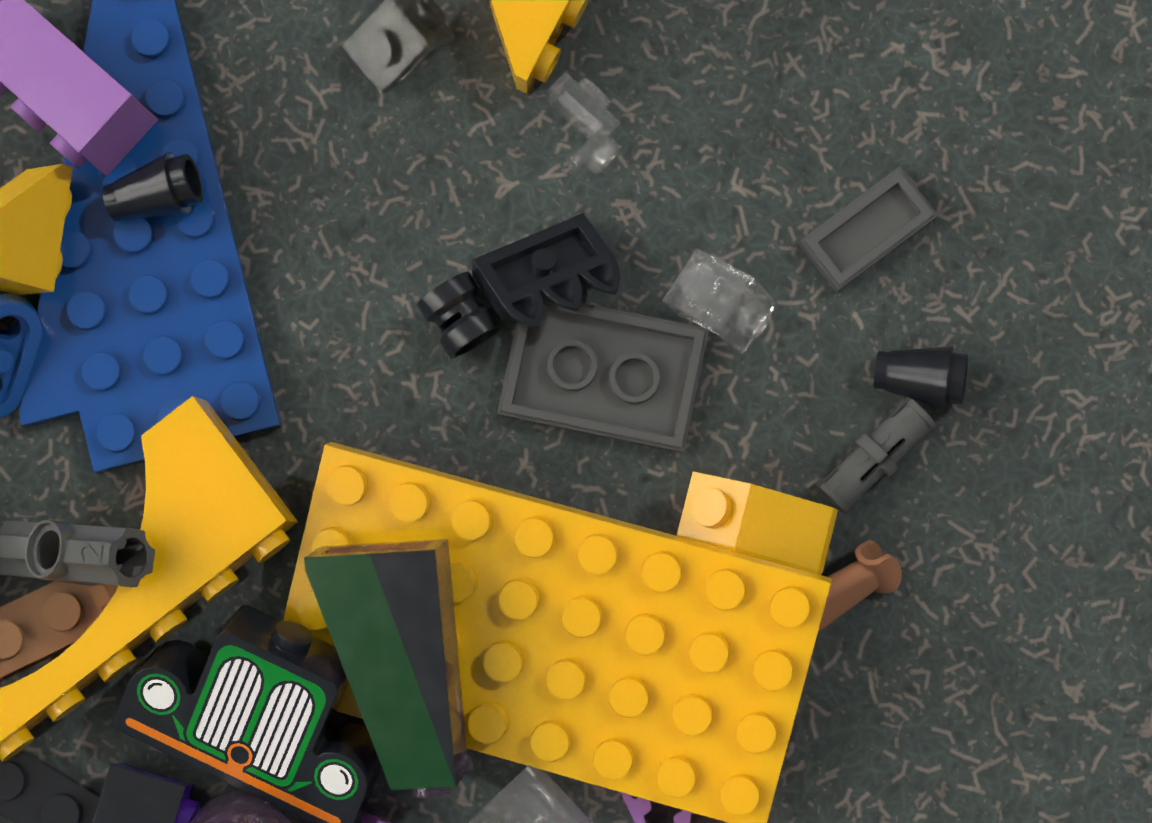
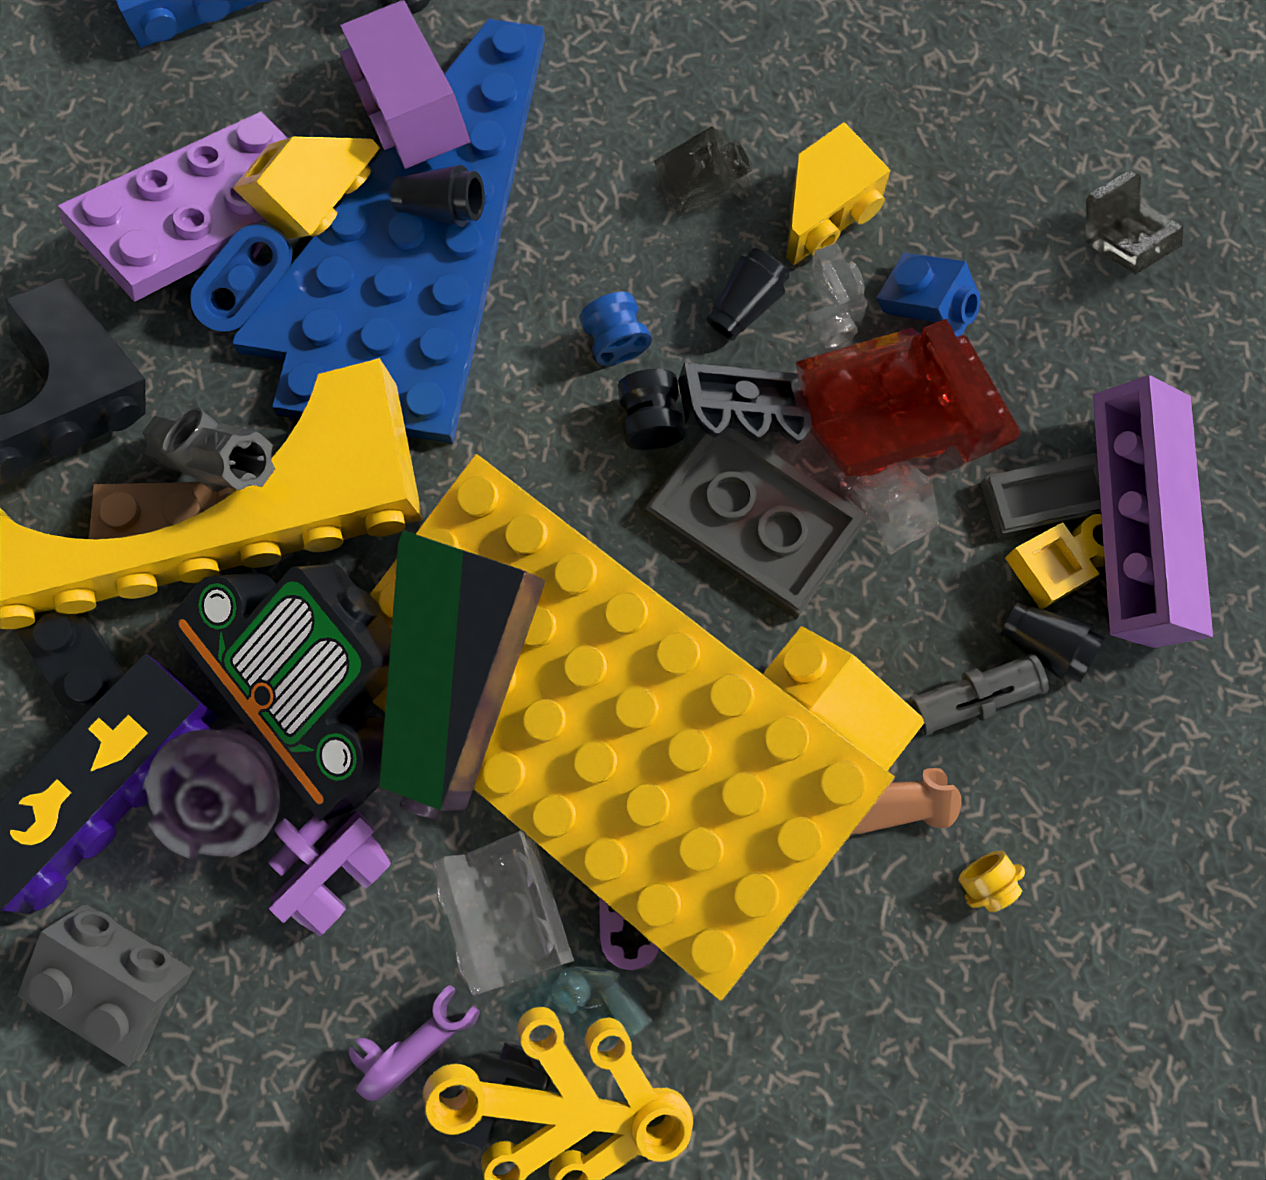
camera: 25 degrees right, 10 degrees down
(387, 247) = (615, 328): none -> blue wheel
(498, 152) = (748, 292): none -> black cone
(672, 223) = (875, 404): none -> clear red bracket
(675, 73) = (931, 291): none -> blue bracket
(749, 165) = (966, 391): none -> clear red bracket
(901, 295) = (1058, 561): none -> yellow plate
(953, 620) = (992, 881): none -> yellow plate
(964, 215) = (1151, 514): none -> medium lavender brick

